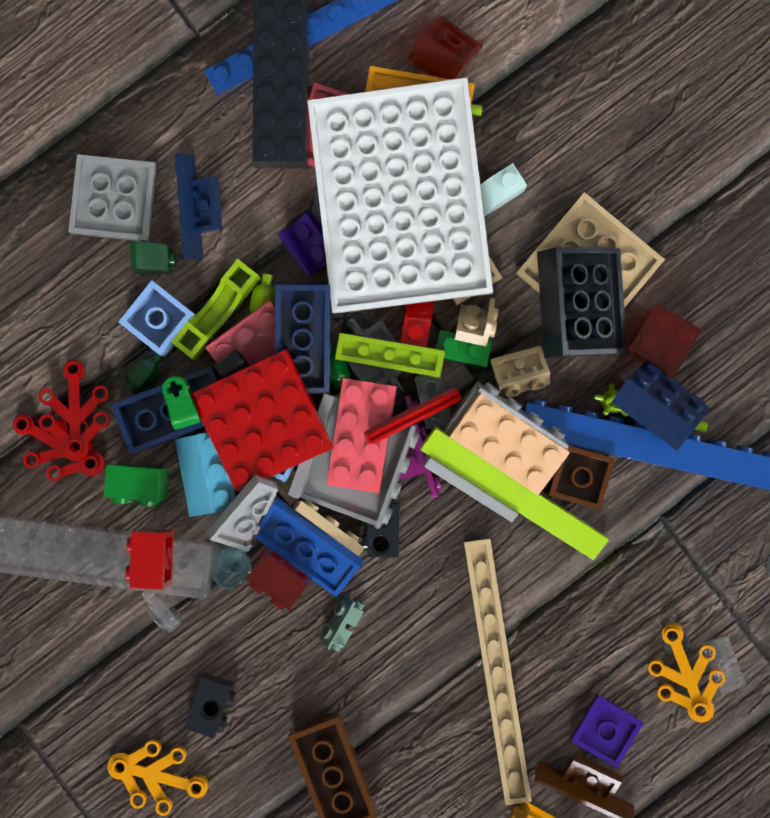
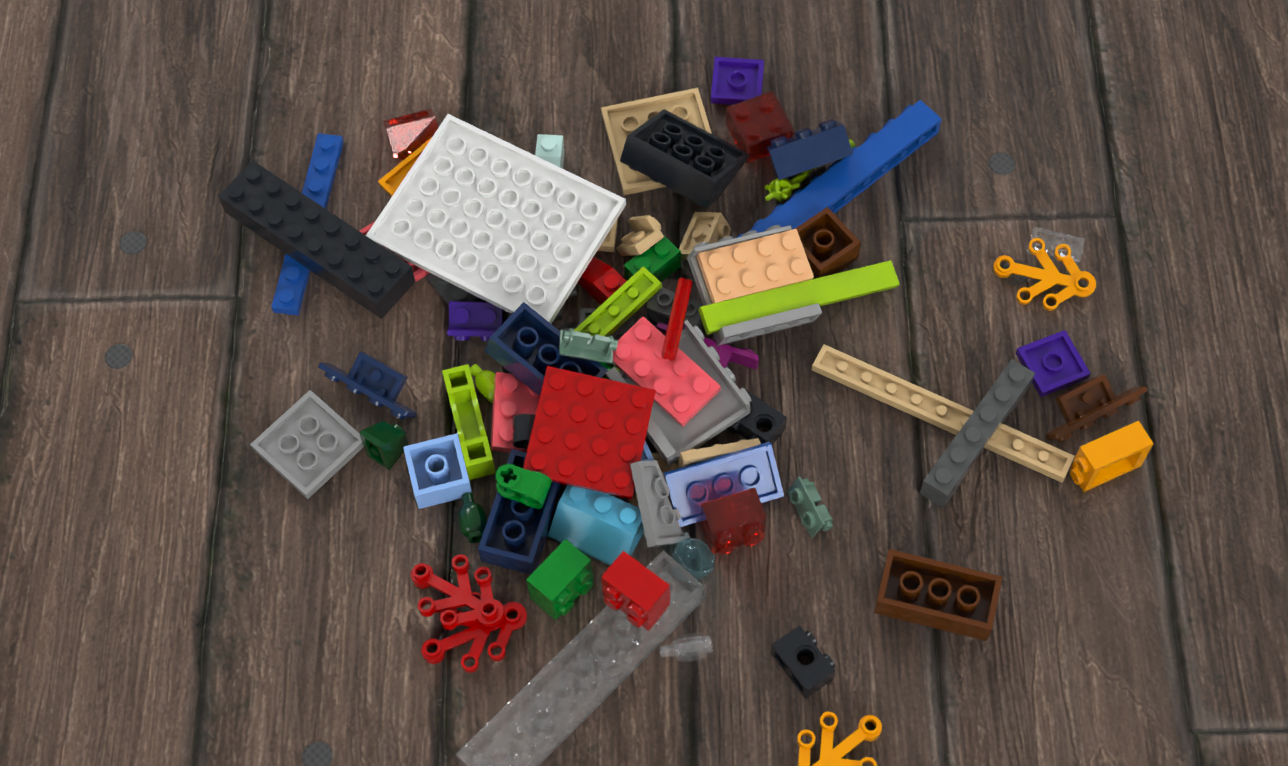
camera: 55 degrees left, 25 degrees down
(331, 364) = (586, 346): none -> sand green hinge
(529, 714) = (976, 432): none -> dark grey arch
(697, 287) = (736, 80): none -> dark purple plate

